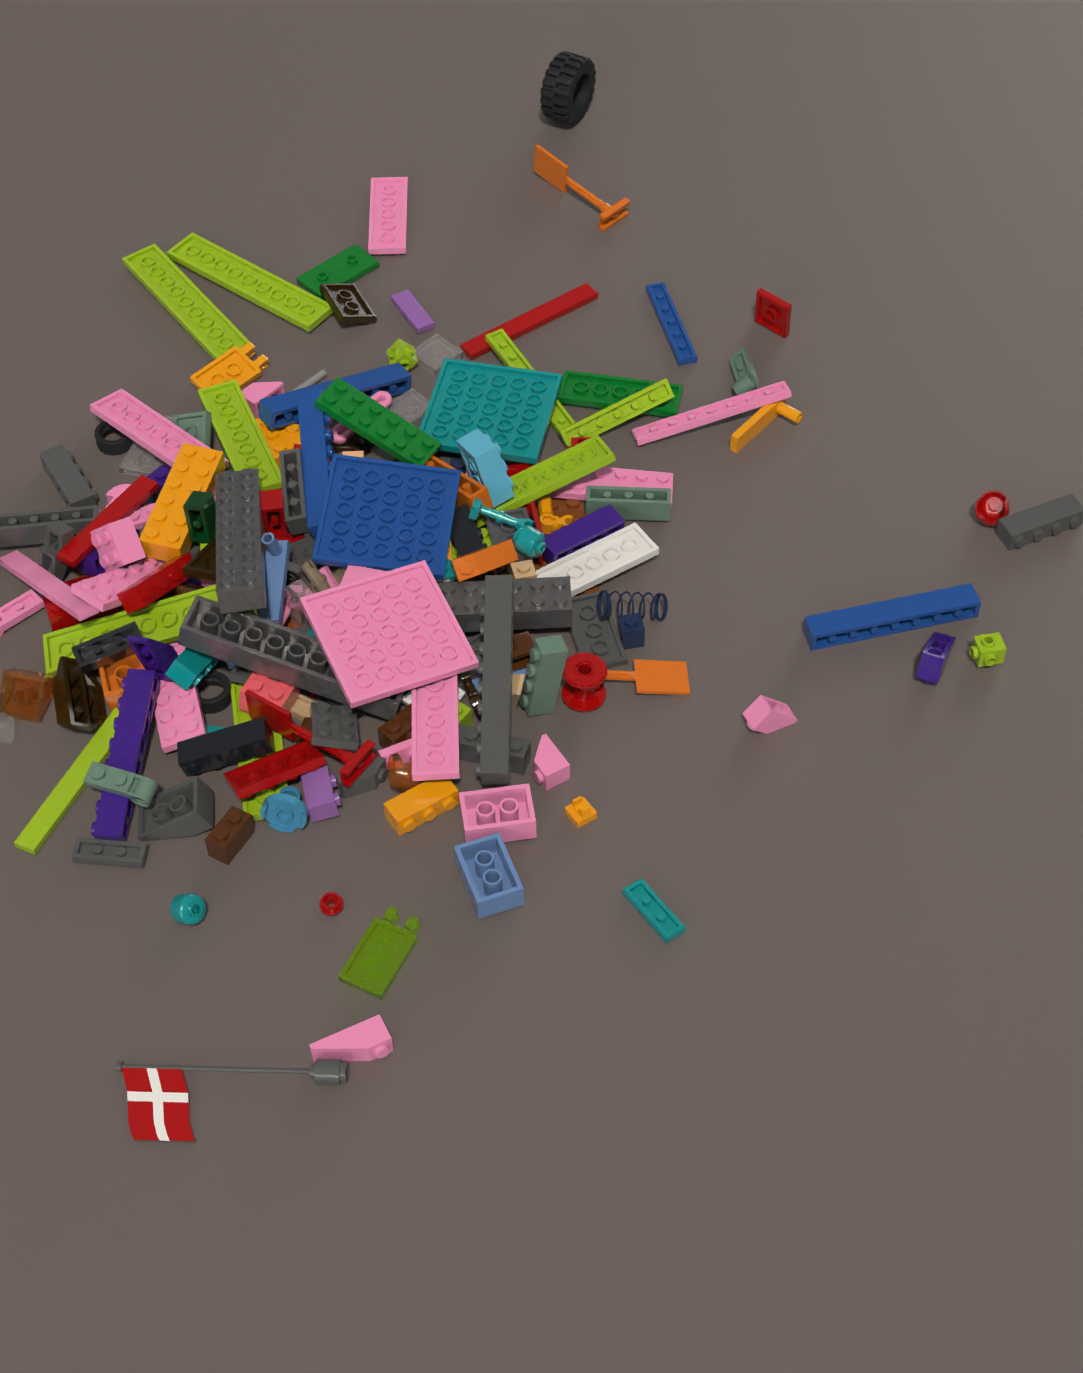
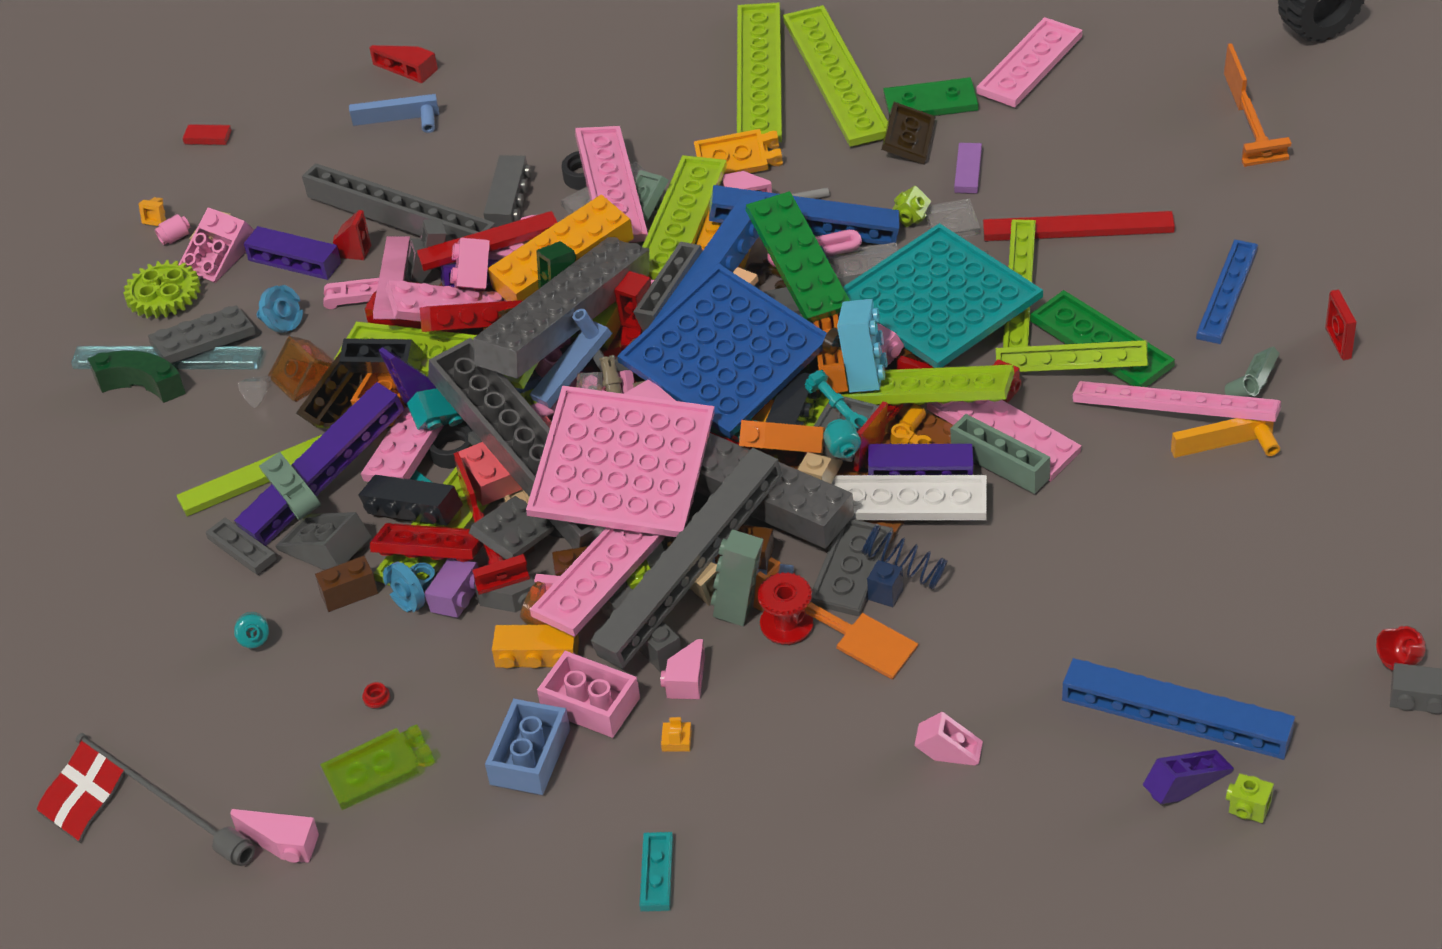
camera: 40 degrees right, 5 degrees down
(465, 473) = (831, 341): none -> dark brown tile

